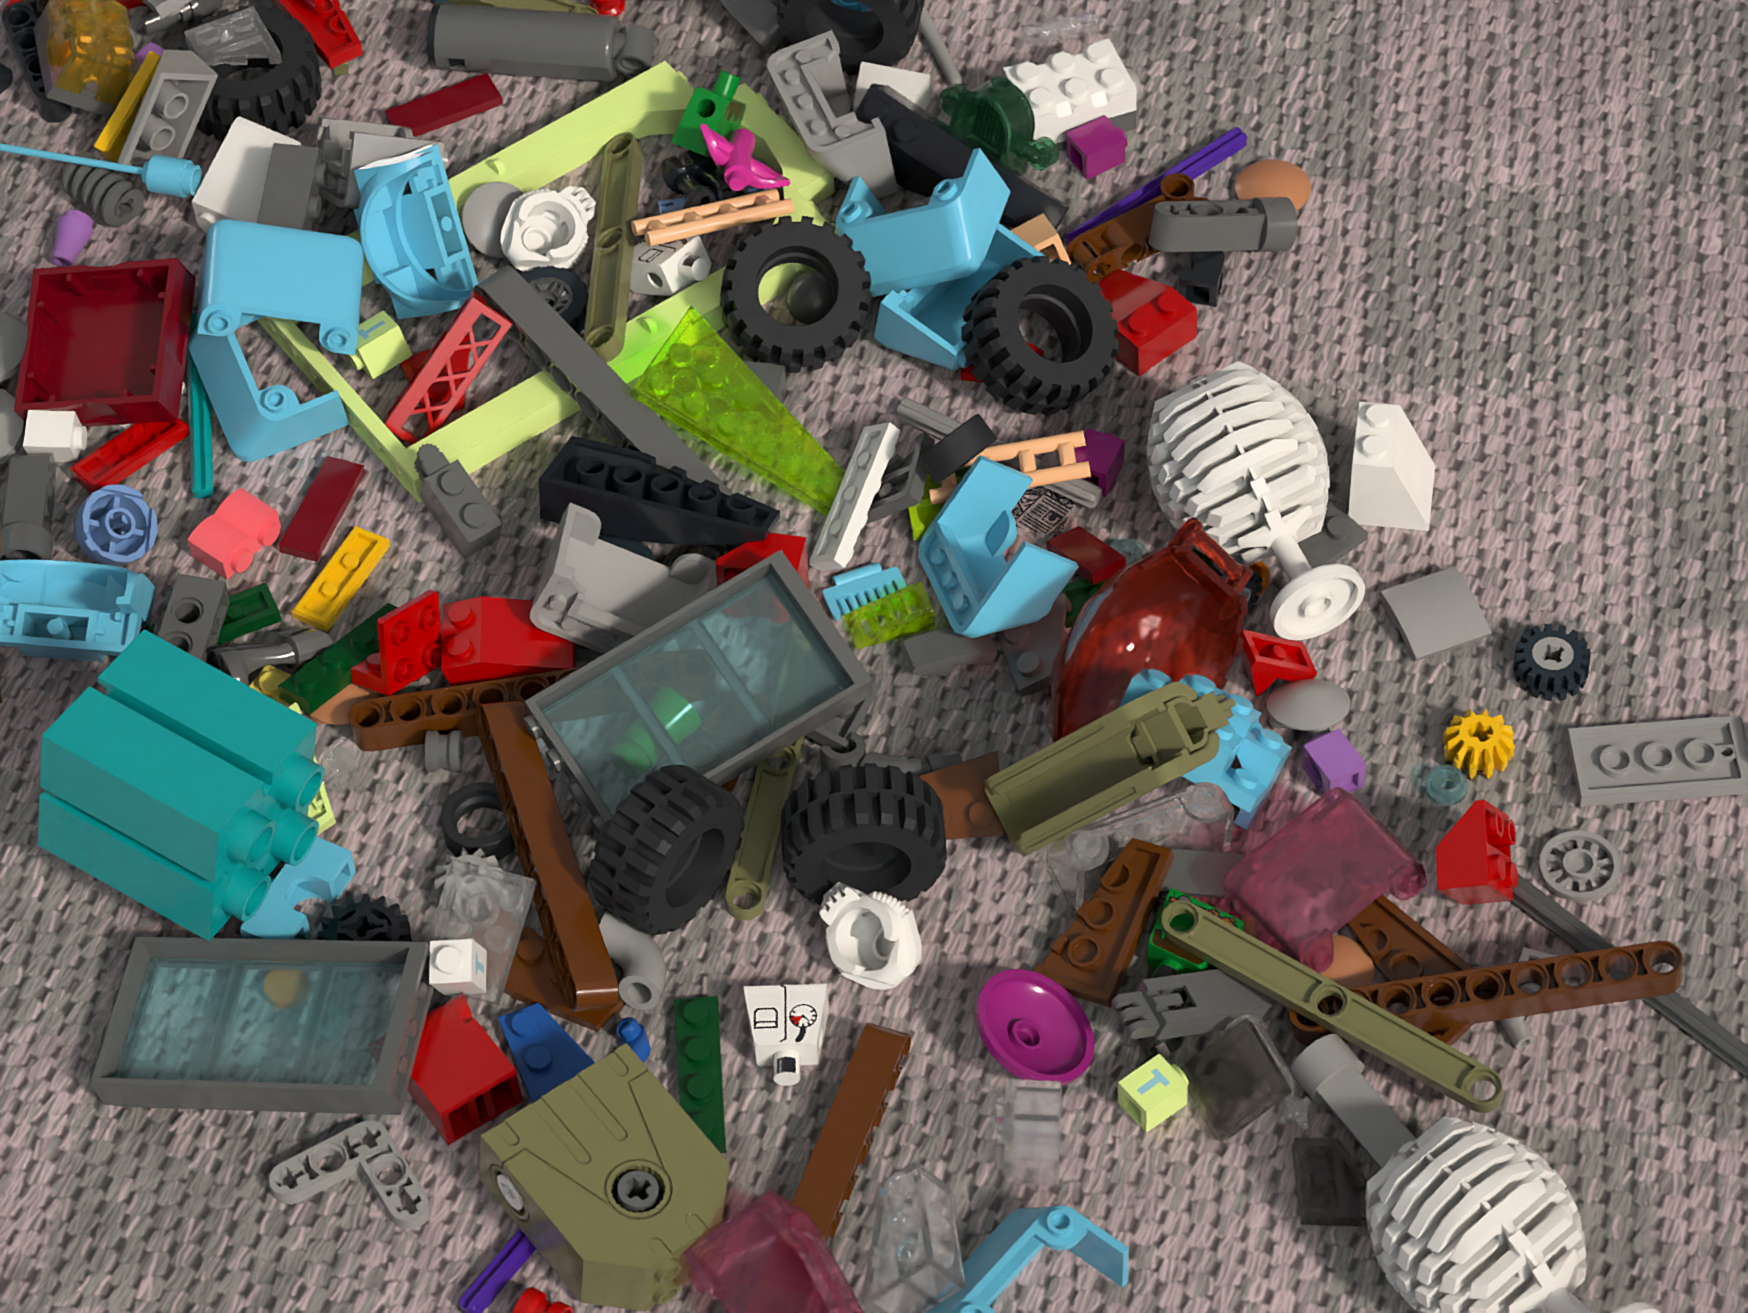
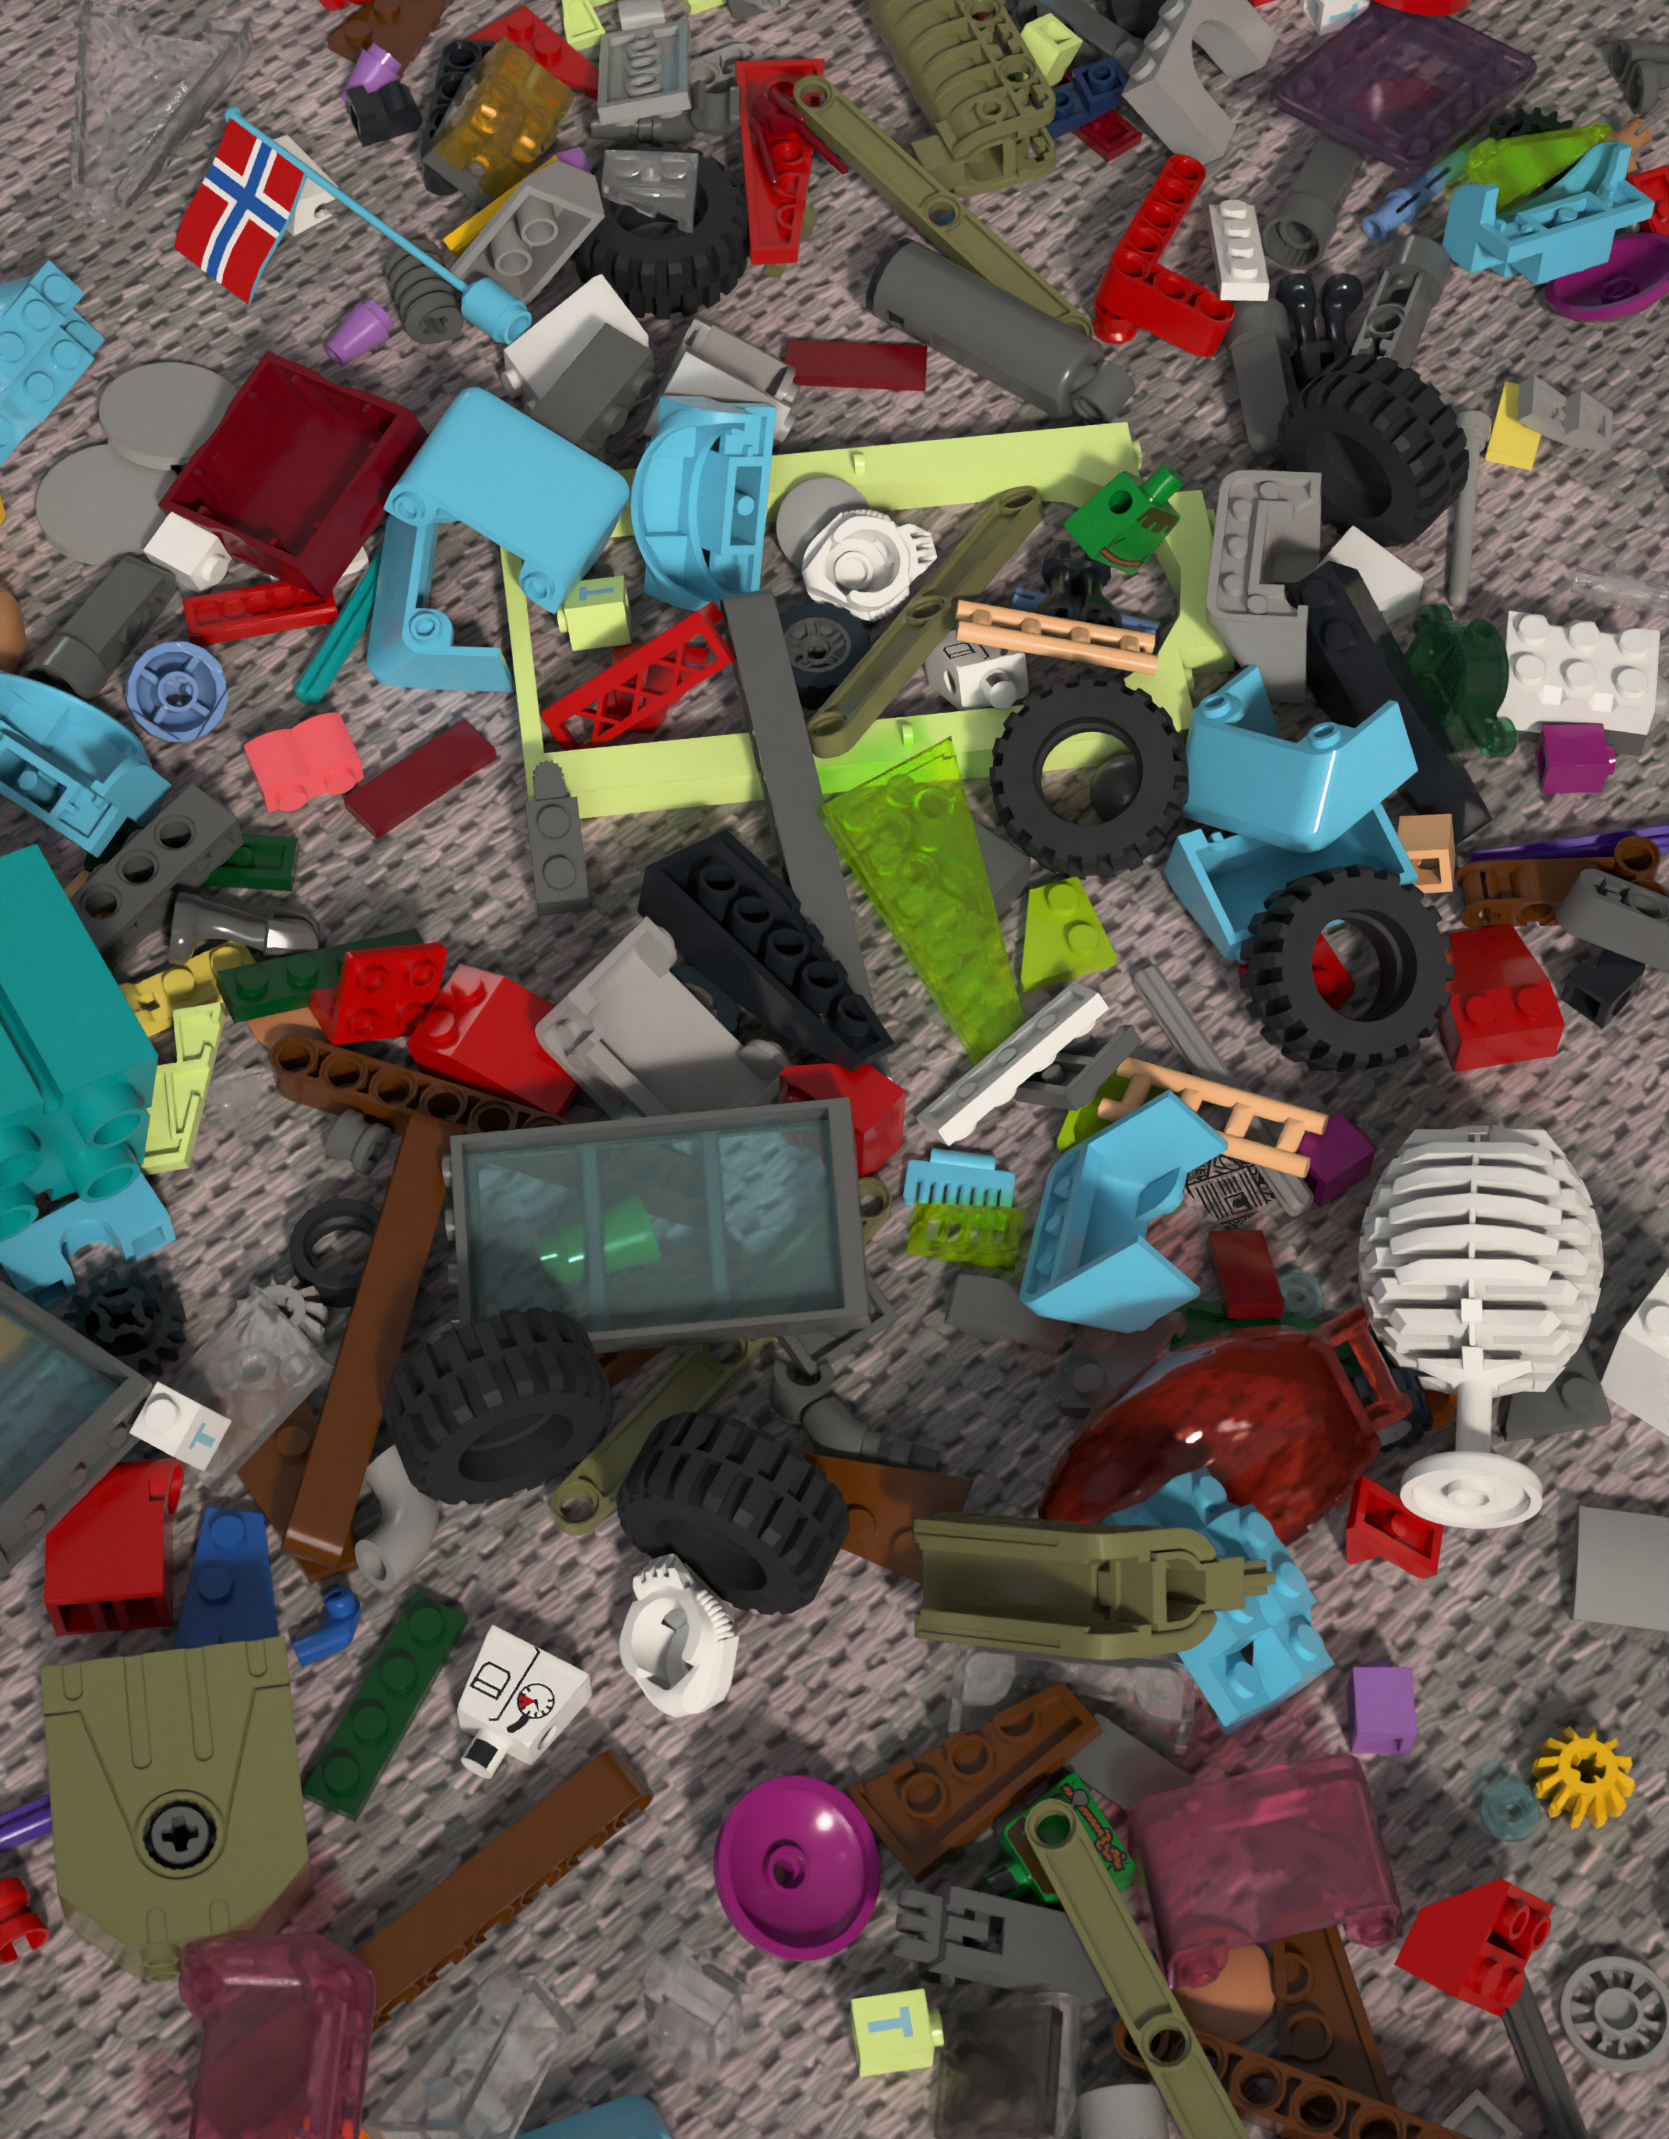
camera: 25 degrees right, 5 degrees up
(341, 578) = (387, 872): yellow tile -> none
(737, 160) = (1124, 582): dark pink plant -> none
(831, 408) = (1062, 936): none -> lime wing
(957, 448) = (1152, 1067): black tyre -> none
(1308, 706) = (1397, 1613): light grey dish -> none

